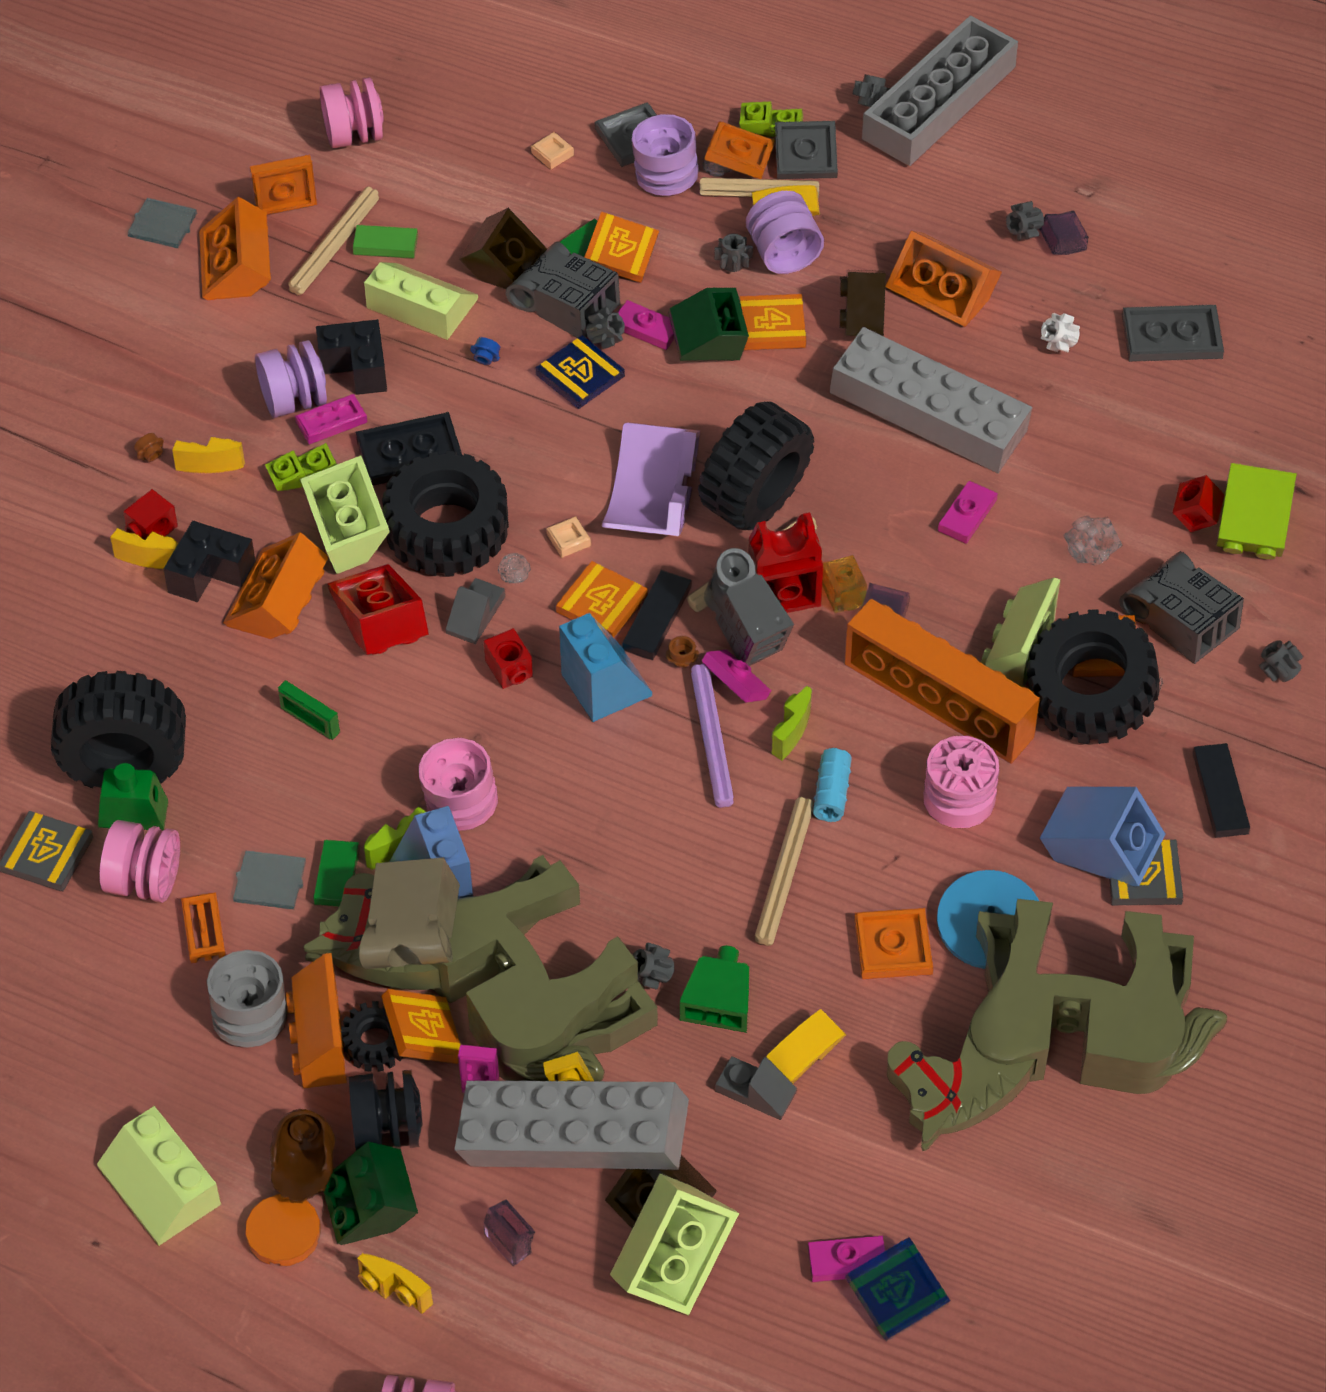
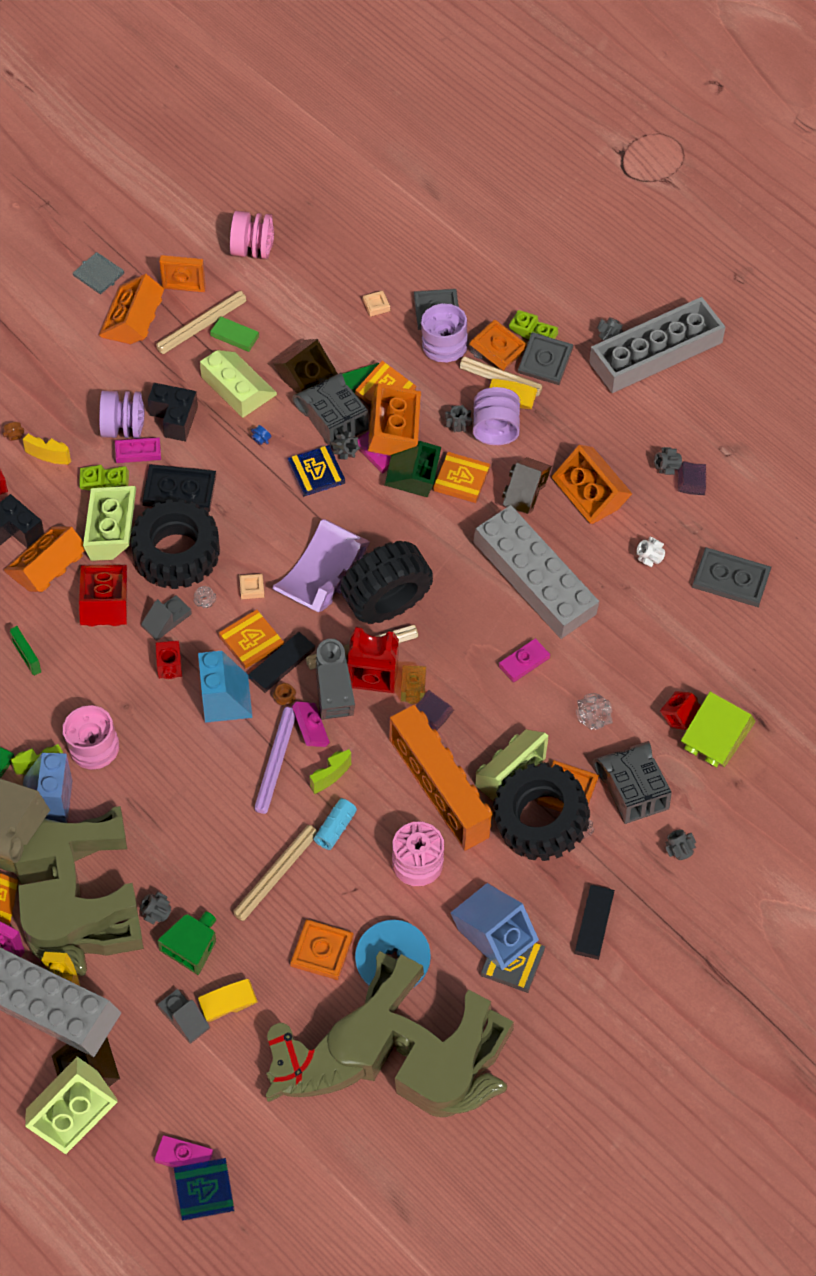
camera: 20 degrees right, 5 degrees up
(656, 274) = (393, 419): none -> orange slope

